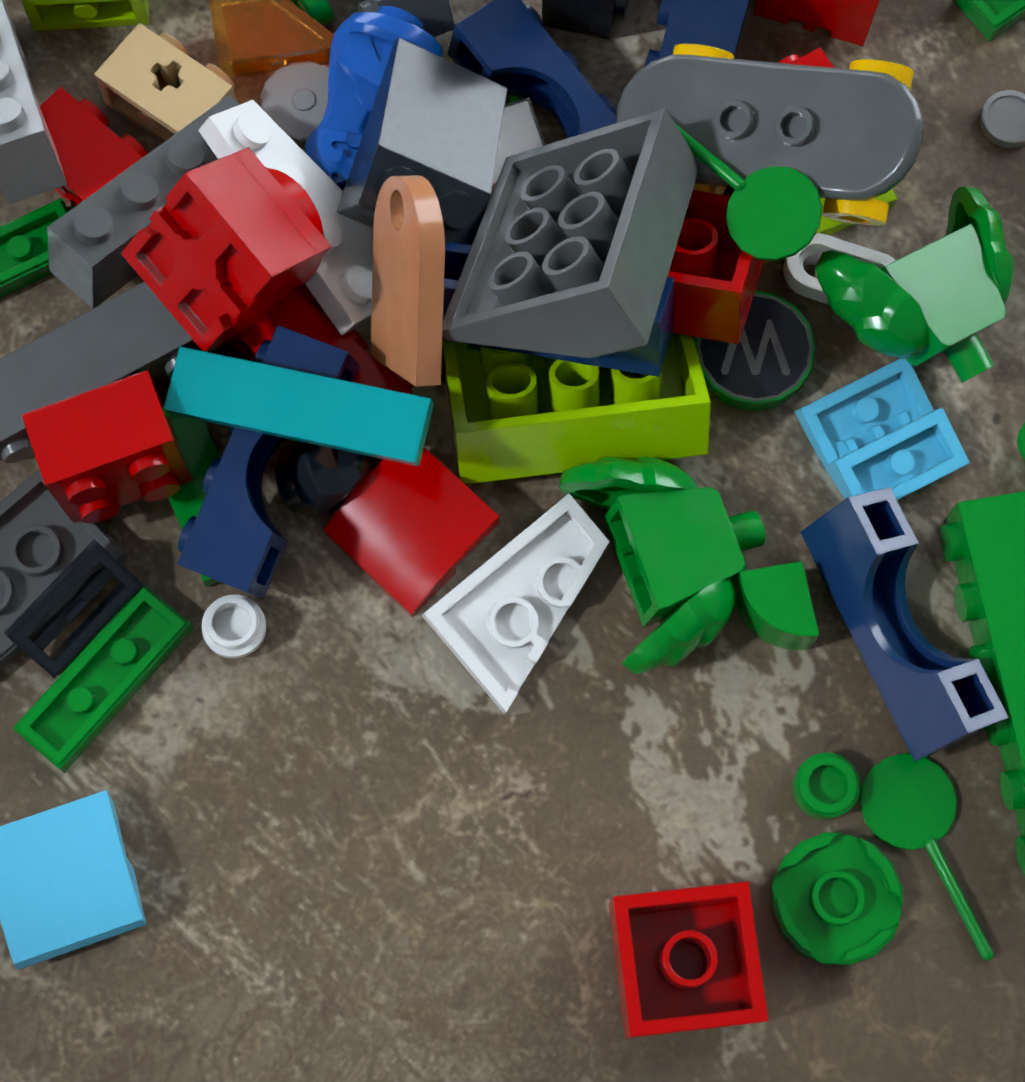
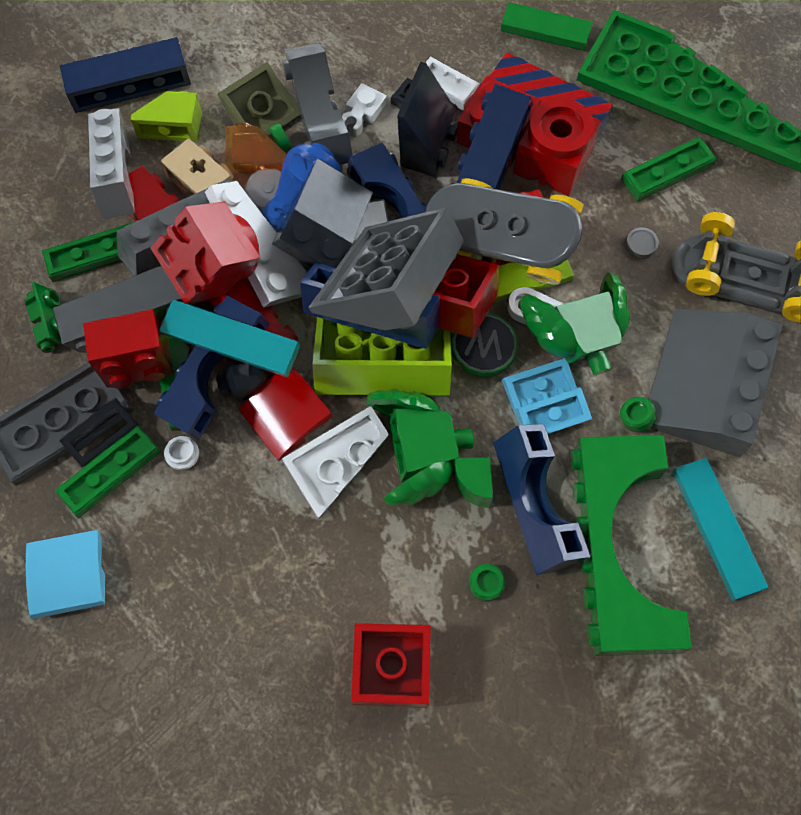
camera: 10 degrees right, 5 degrees down
(408, 280) = (297, 279): nougat tile -> none
(770, 210) = (496, 268): green piece -> none
(836, 899) = (482, 645): green tile -> none
(912, 809) = (533, 601): green piece -> none

